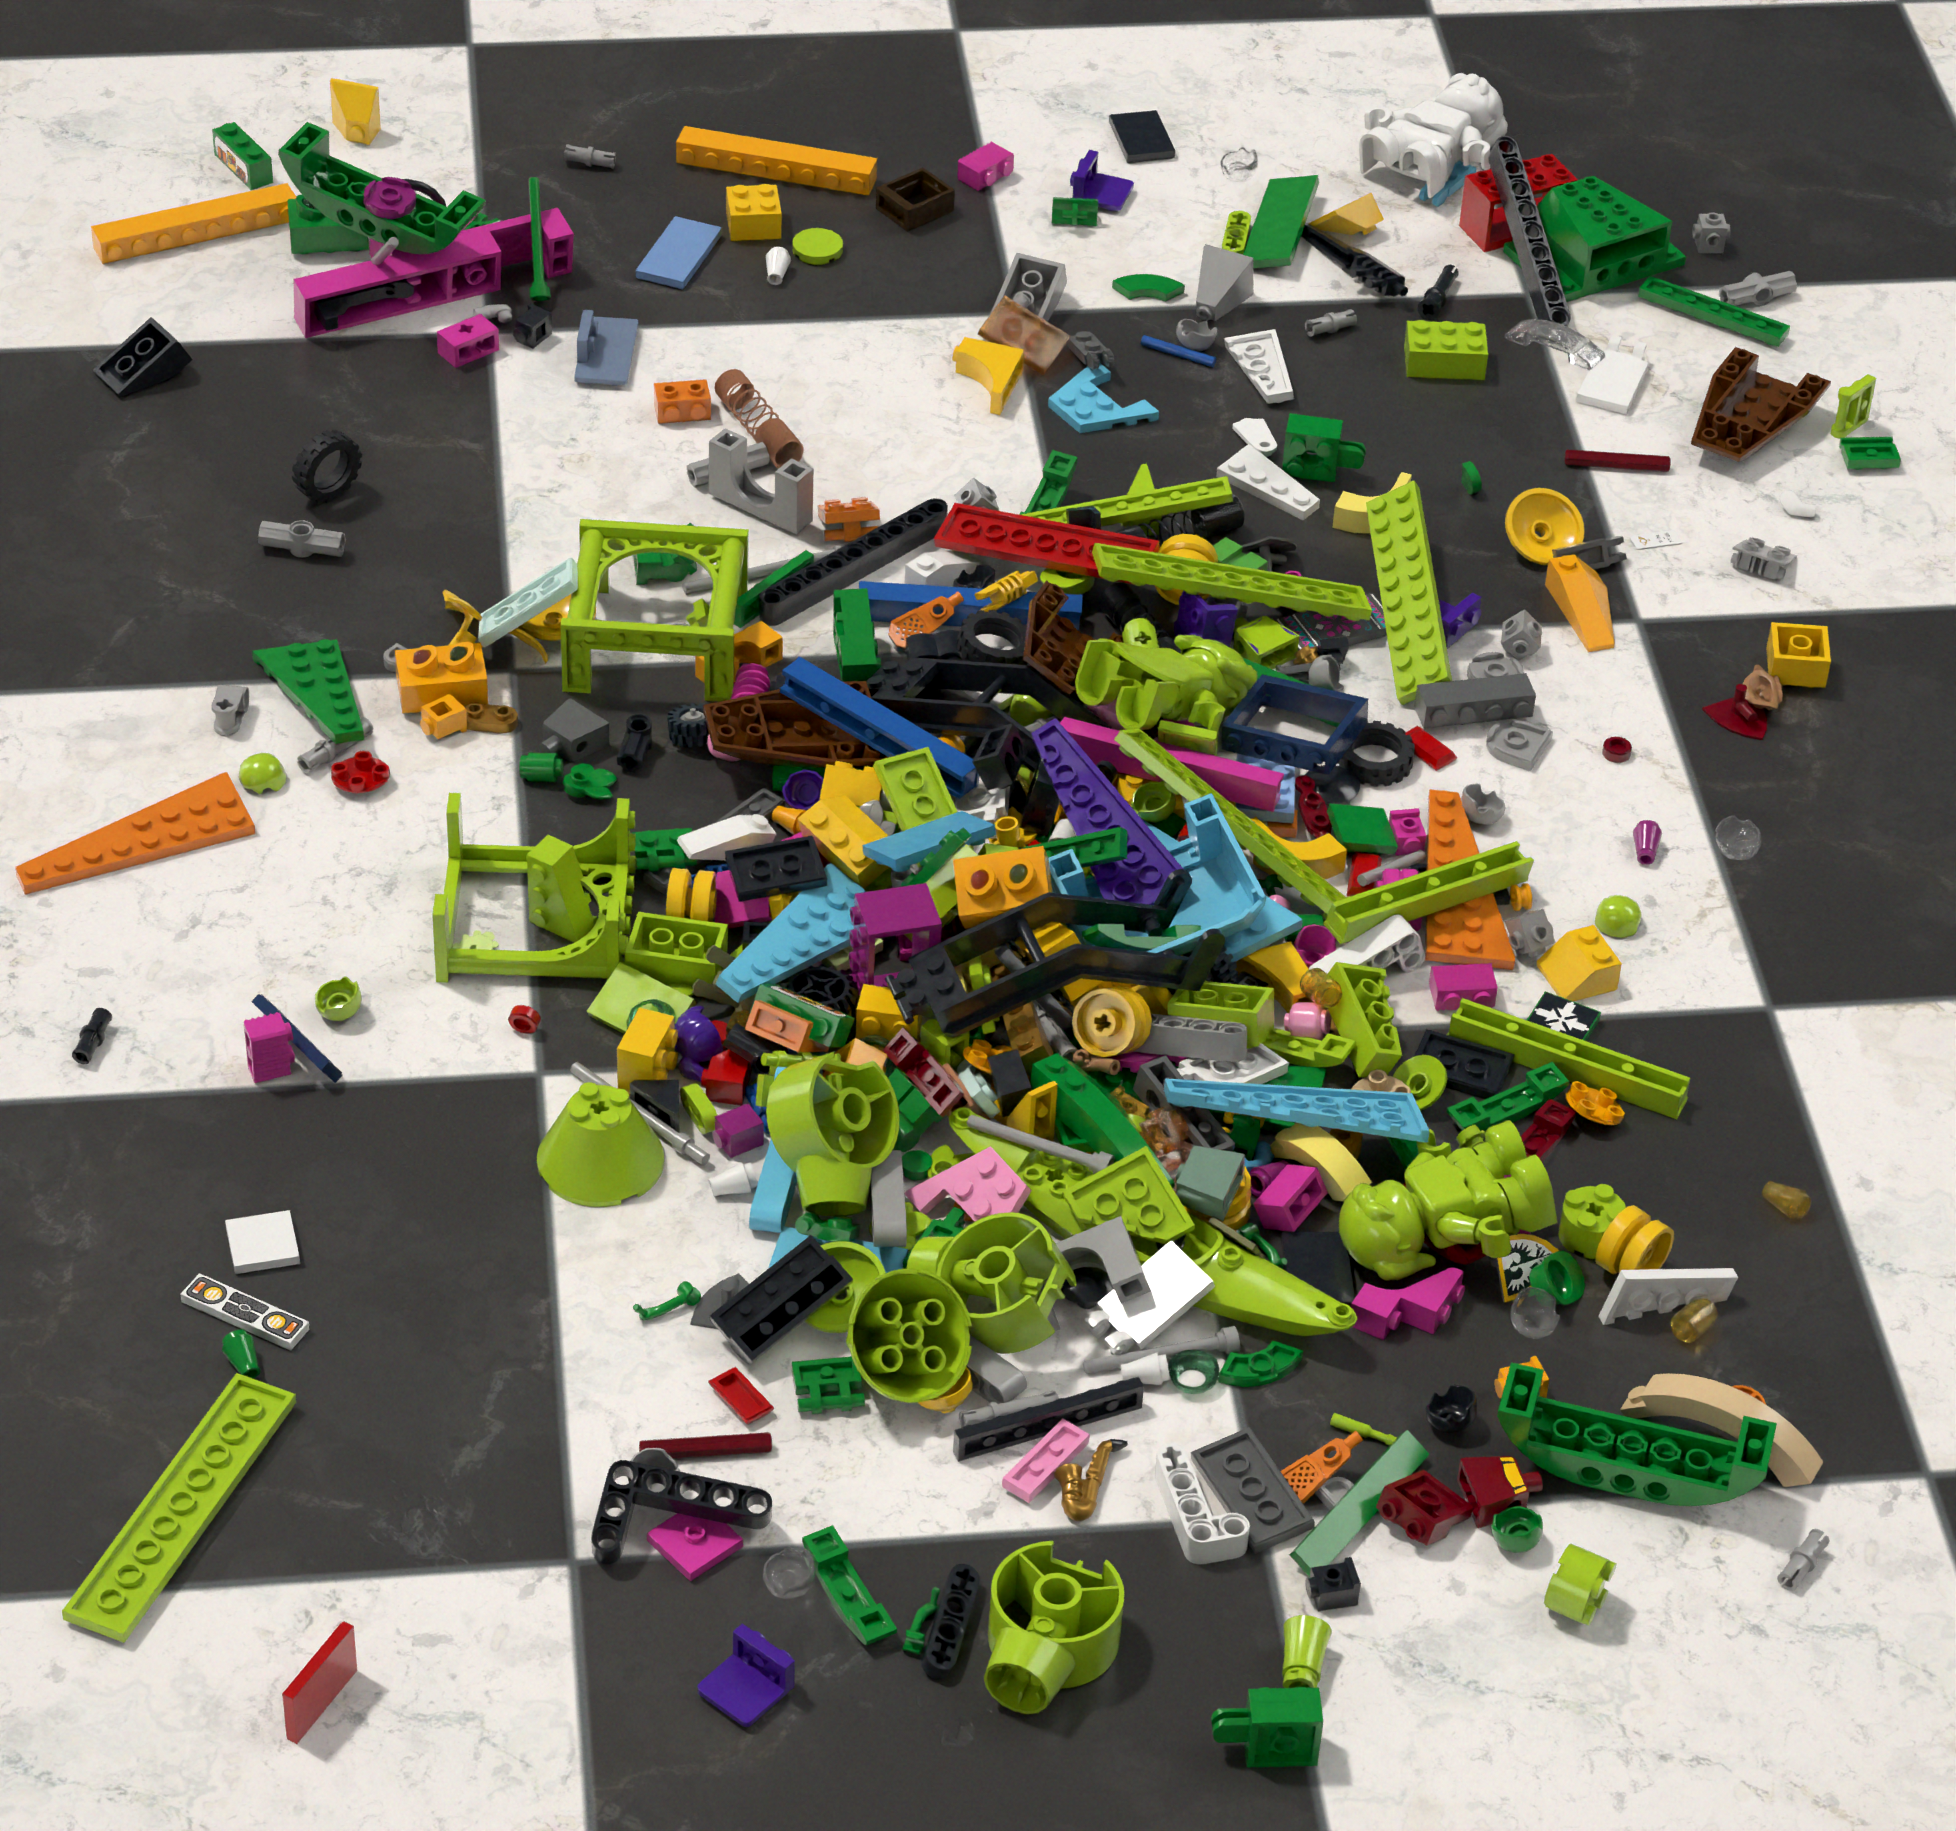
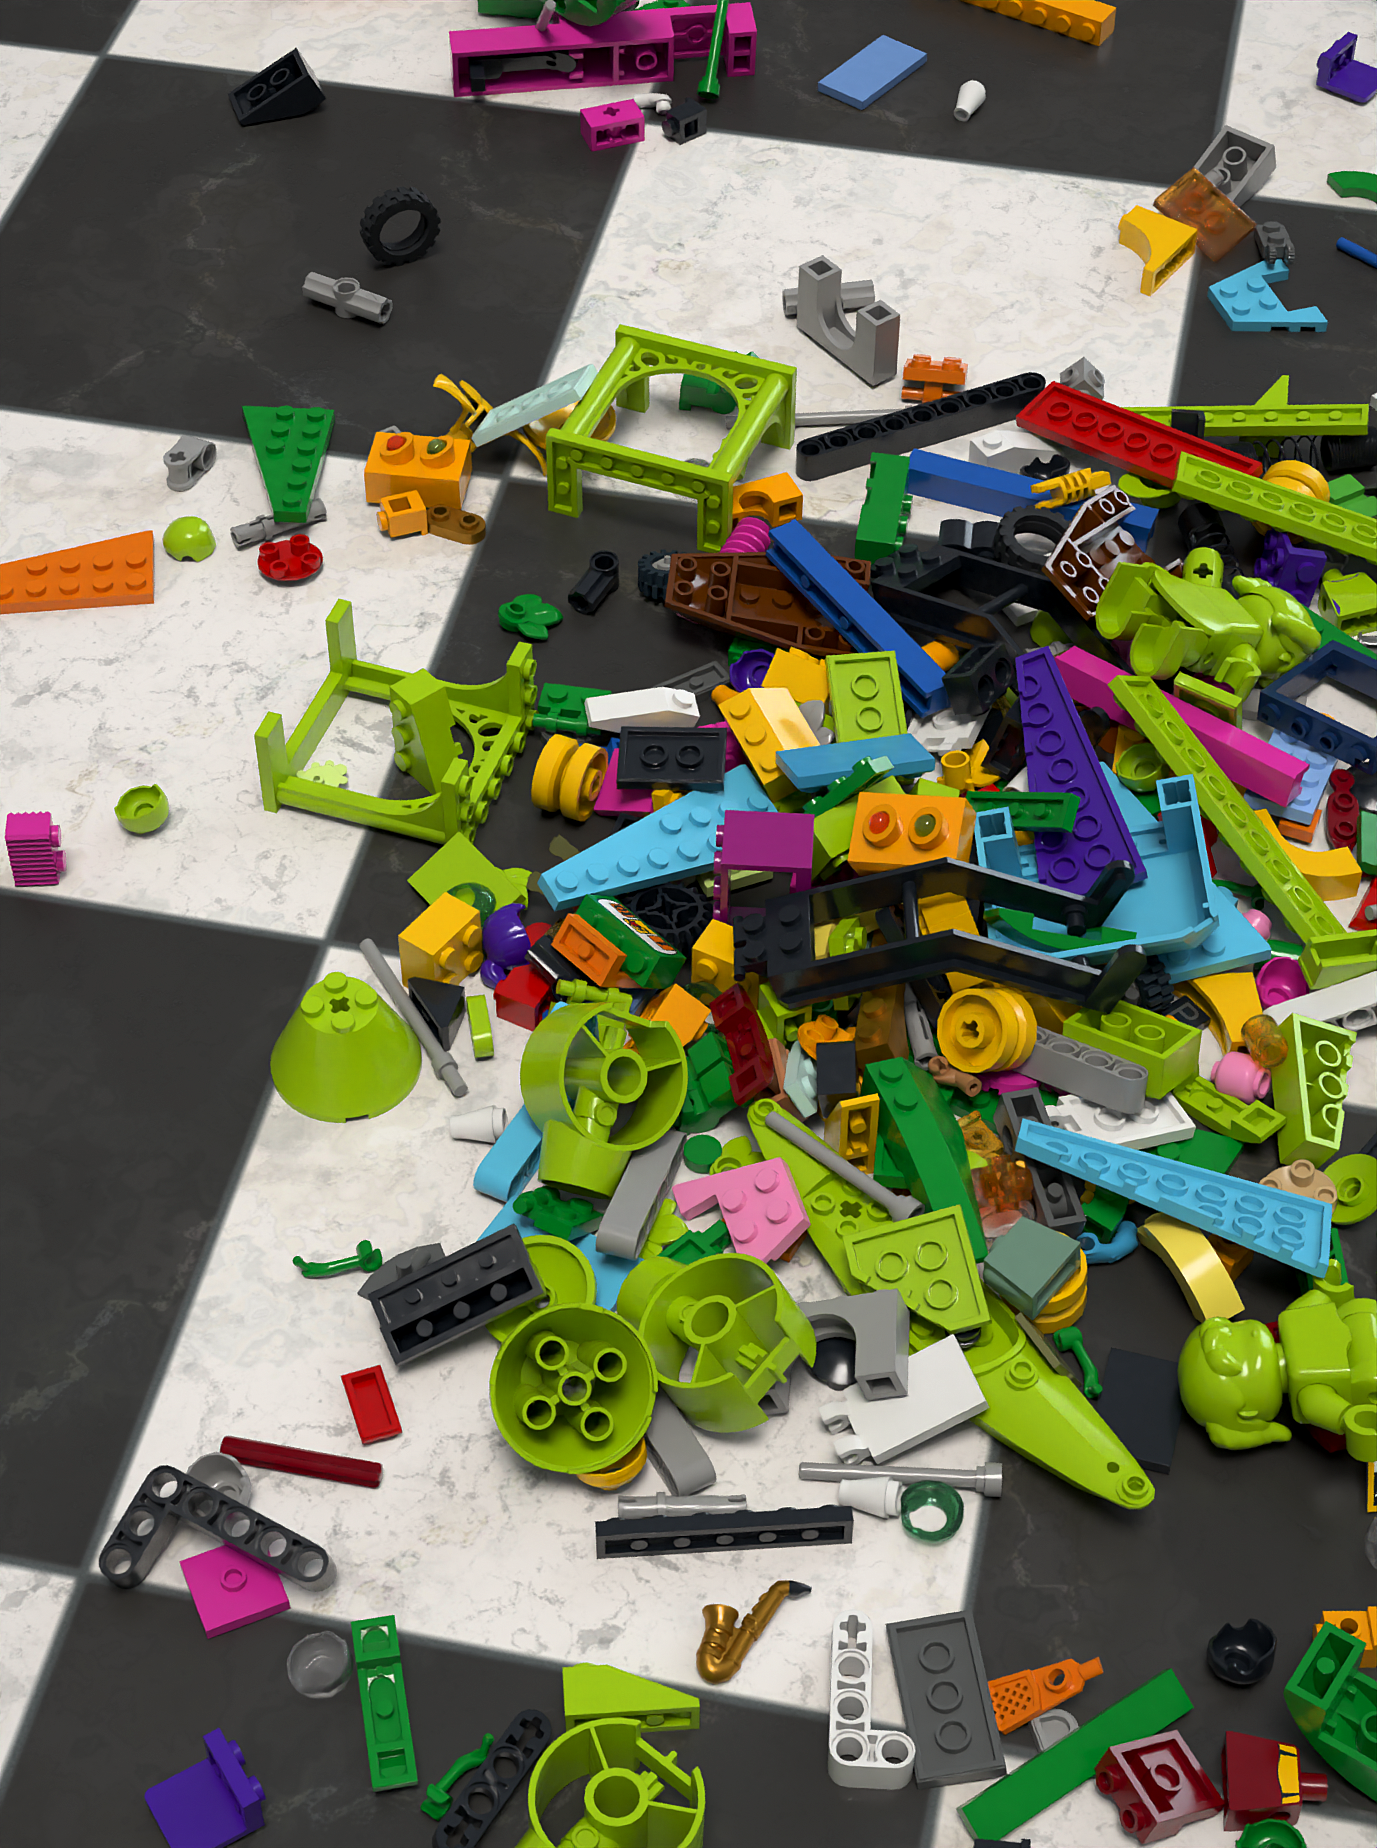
camera: 20 degrees right, 5 degrees up
(301, 1040) = (78, 844): dark blue tile -> none
(524, 1019) = (332, 875): red tile -> none
(541, 767) = (482, 589): green brick -> none
(574, 732) = (533, 558): dark grey torso -> none
(604, 349) = (749, 155): sand blue bracket -> none
(674, 948) = (520, 822): lime brick -> none
(682, 401) = (807, 223): orange brick -> none
(738, 1130) = (504, 1063): magenta brick -> none
(748, 603) = (781, 454): green plate -> none
(753, 212) = (965, 43): yellow brick -> none
(774, 433) = (888, 272): nougat piece -> none
(817, 246) = (1021, 87): lime tile -> none
(826, 1376) = (462, 1404): green plate -> none
(893, 196) = (1121, 48): dark brown window -> none
(925, 617) = (972, 501): orange piece -> none
(985, 166) = (1233, 34): dark pink brick -> none
(998, 1540) = (608, 1692): none -> lime slope
(1040, 1463) = (704, 1583): bright pink plate -> none
(1055, 482) = (1176, 382): green slope -> none
(1074, 211) = (1313, 95): green hips -> none
(1260, 1367) = (1020, 1526): green tile -> none
(1264, 1175) = (1118, 1271): magenta cone -> none
(1290, 1198) = (1135, 1306): dark pink brick -> none
(1363, 1429) = (1117, 1646): lime piece -> none
(1418, 1305) = (1254, 1492): dark pink arch -> none

